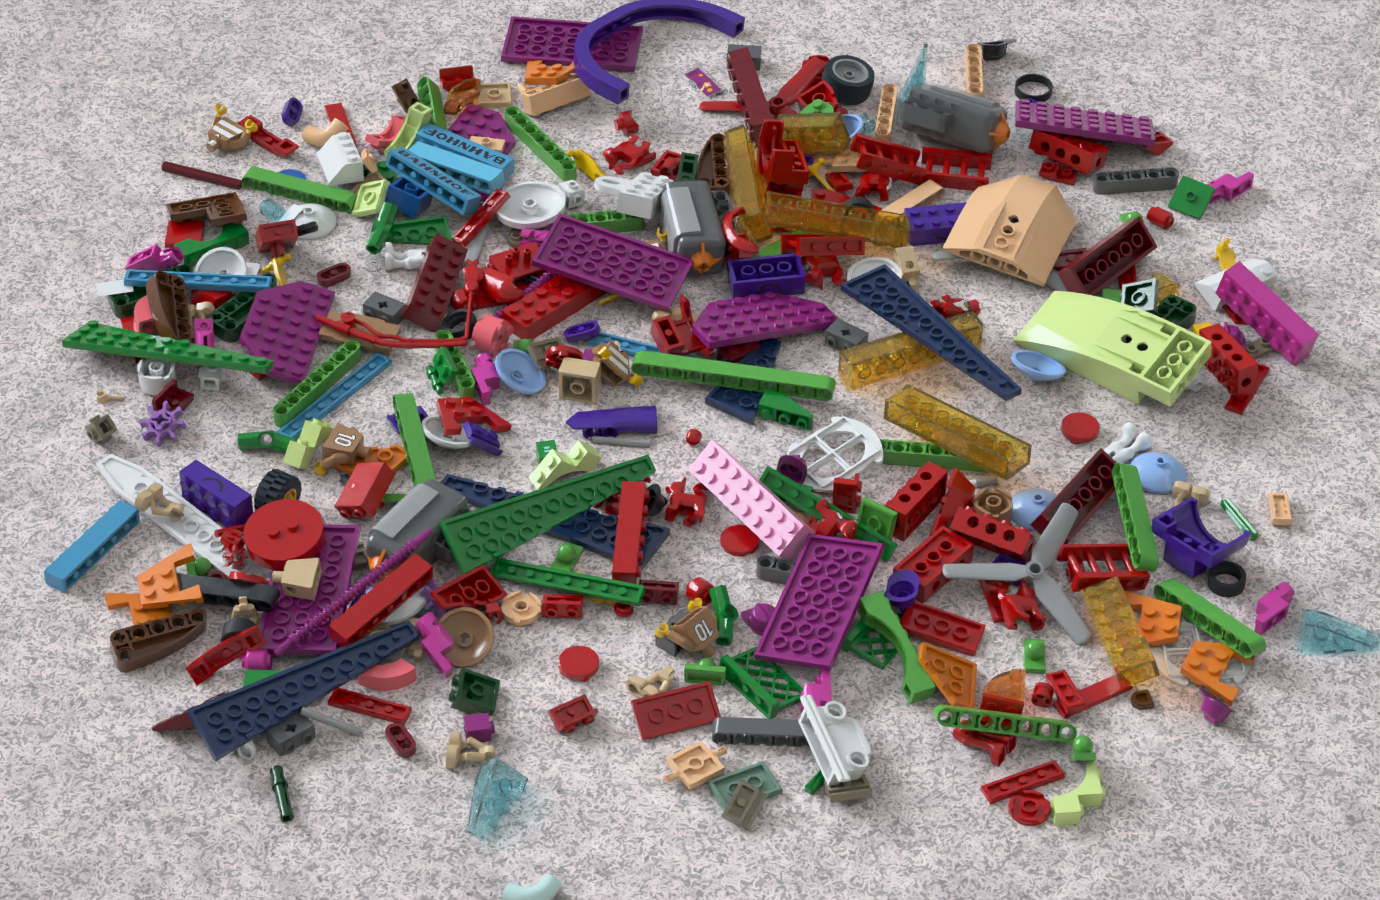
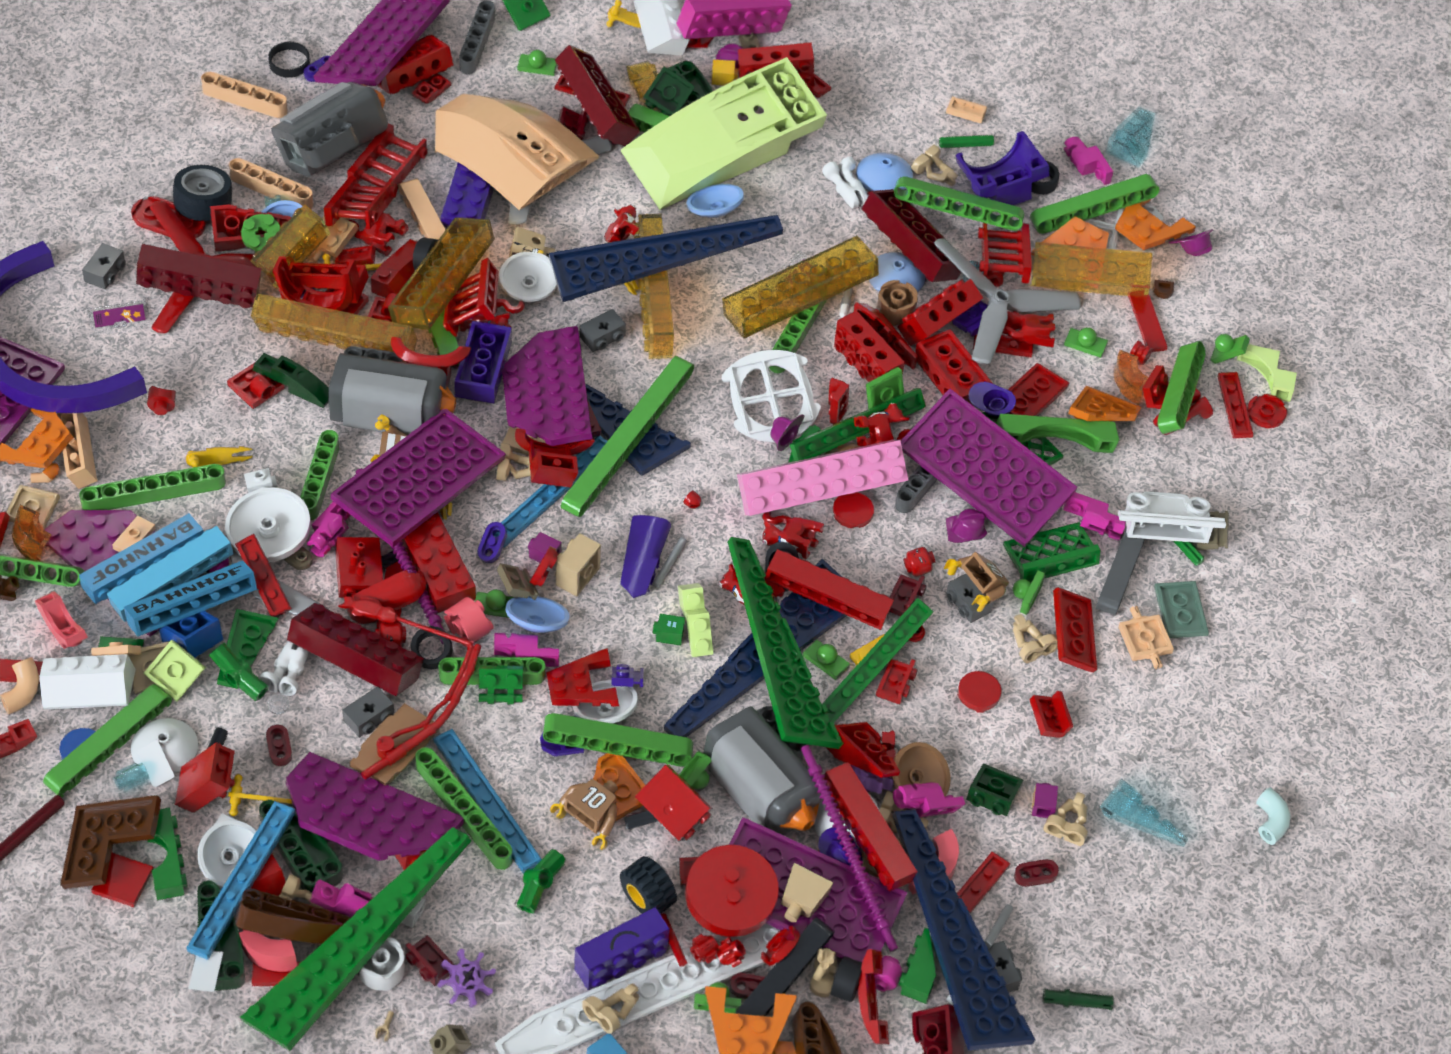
camera: 75 degrees left, 10 degrees up
(155, 259) = (168, 919): dark pink plate -> none
(312, 436) = (558, 831): yellowish green arch -> none
(416, 118) = (69, 585): yellowish green arch -> none
(521, 617) = (891, 709): light nougat plate -> none
(615, 364) = (563, 528): medium nougat torso -> none
(631, 154) = (216, 413): red animal -> none
(637, 196) = (305, 418): white brick -> none
(713, 164) = (258, 340): reddish brown beam -> none
(725, 614) = (955, 548): green piece -> none
(744, 805) = (1213, 613): dark tan plate -> none
(782, 409) = (685, 414): green slope -> none
(917, 74) = (252, 136): clear light blue wedge -> none
(996, 49) = (212, 58): black piece -> none
(1066, 692) = (1145, 333): red tile -> none
(1080, 427) = (805, 204): red tile -> none
(1160, 217) = (539, 40): red brick -> none

